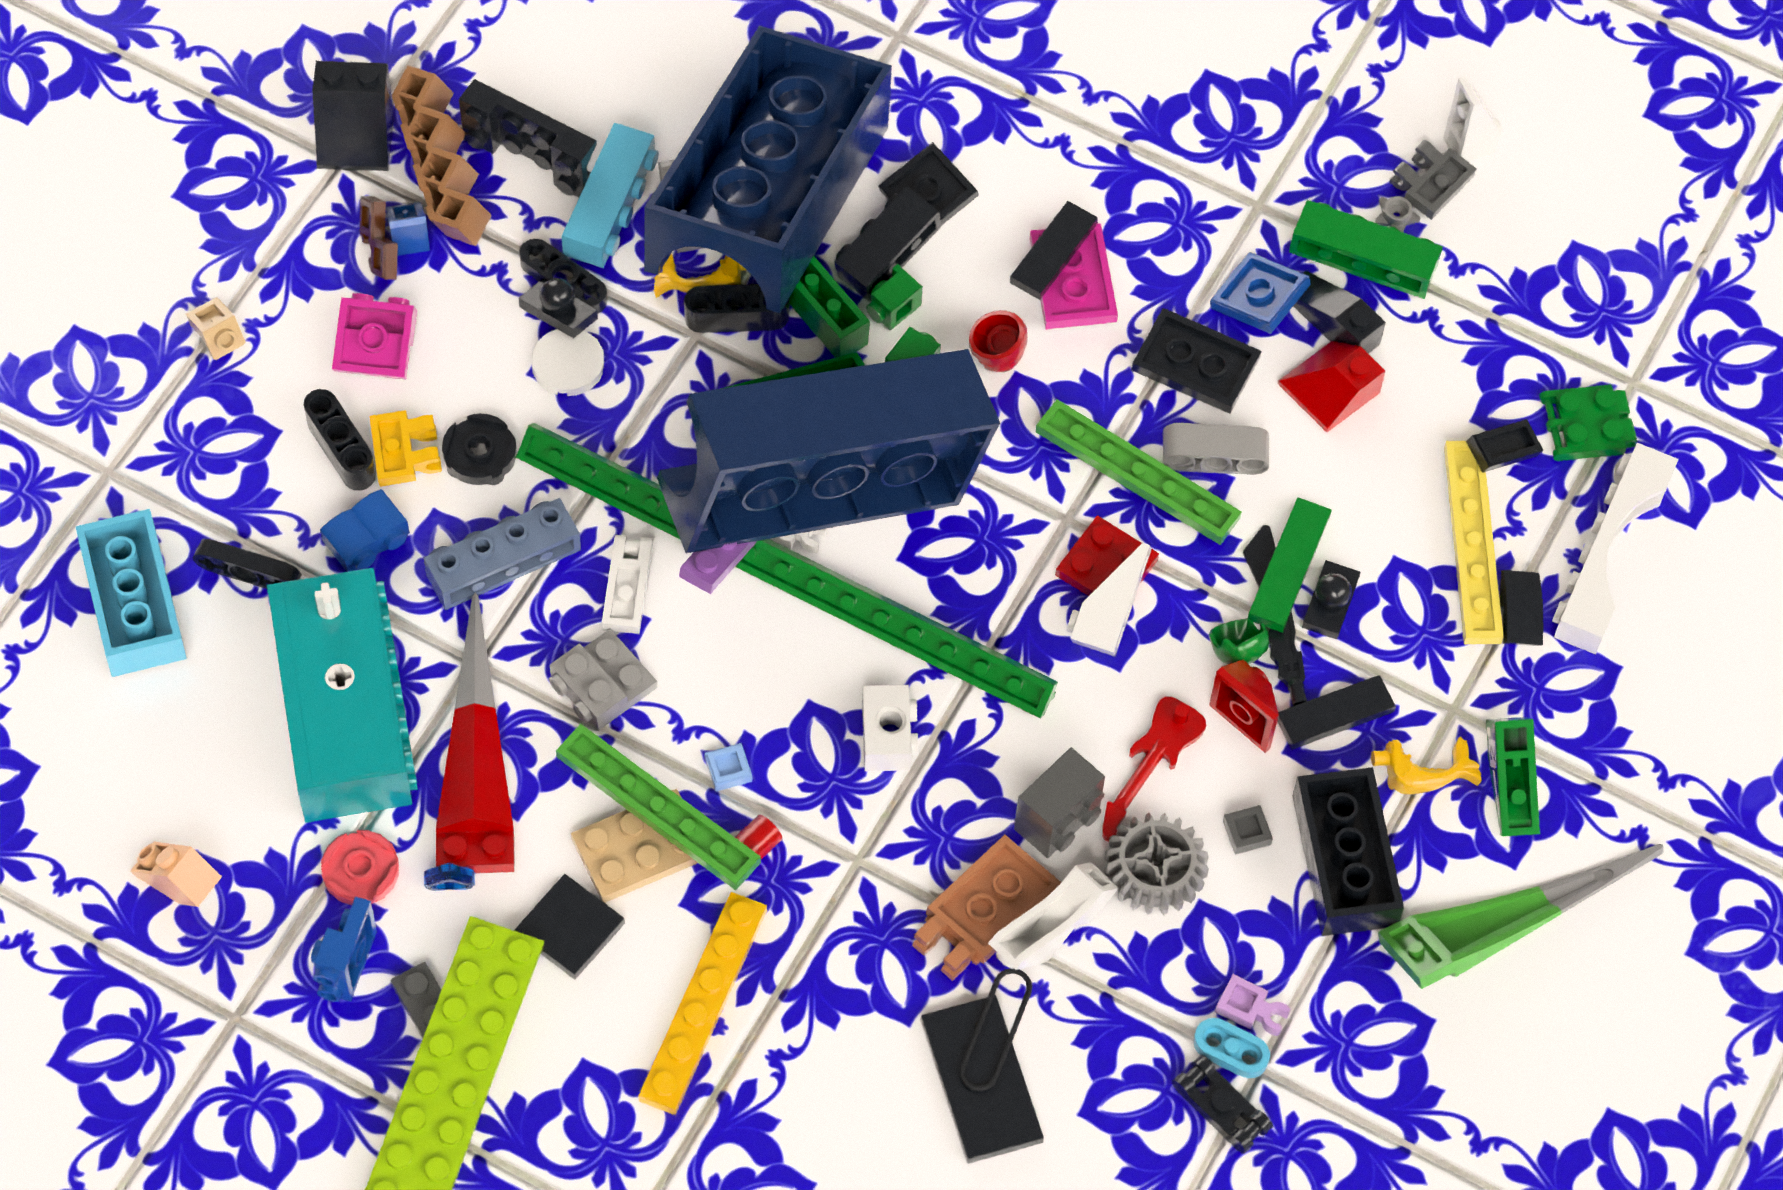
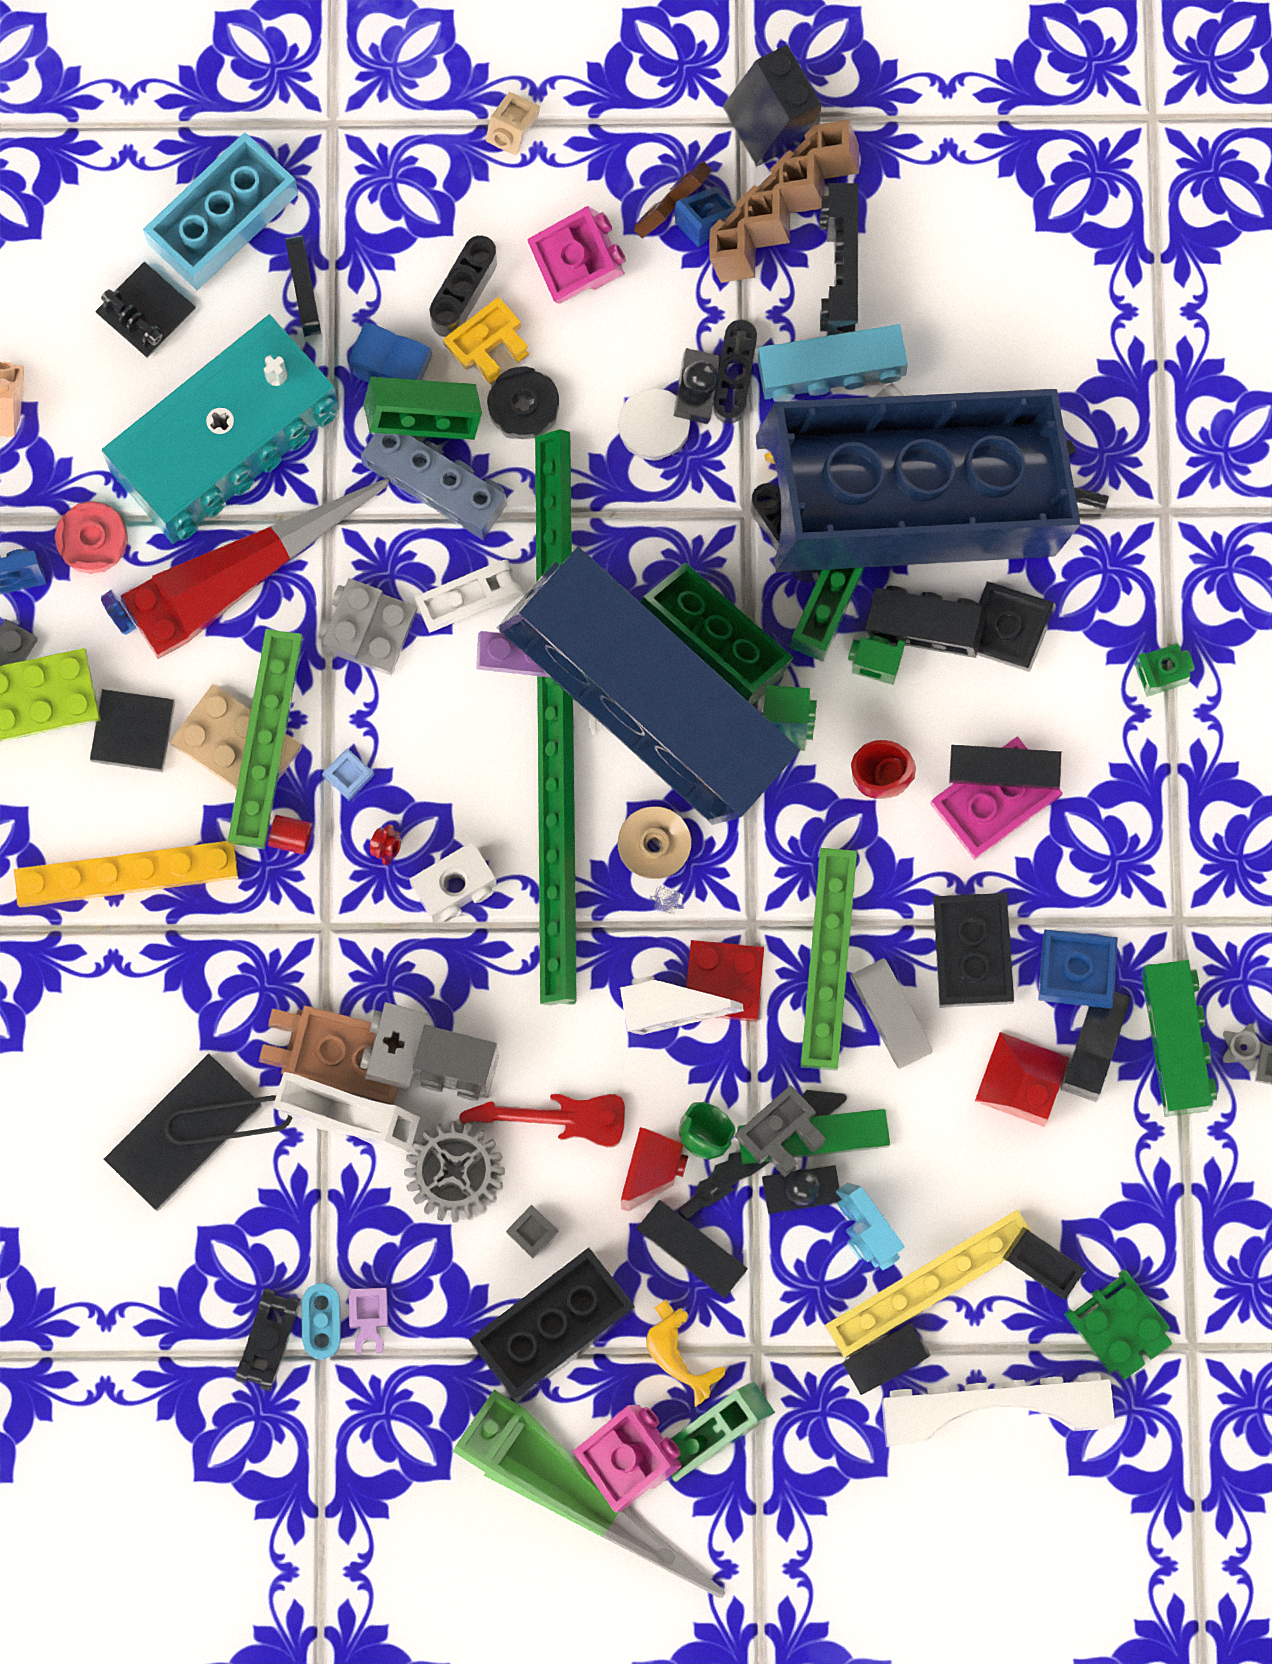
camera: 65 degrees right, 15 degrees up
(174, 710) = (144, 309): none -> black hinge
(435, 520) = (422, 408): none -> green brick
(816, 765) = (385, 844): none -> red plate
(953, 536) = (650, 825): none -> tan dish
(1008, 568) = (667, 900): none -> clear plate
(1014, 846) = (394, 1068): none -> light grey brick
(1038, 95) = (1155, 678): none -> green brick
(1268, 579) = (775, 1125): none -> dark grey plate
(1402, 550) = (871, 1234): none -> medium azure plate
(1500, 853) = (628, 1456): none -> dark pink plate

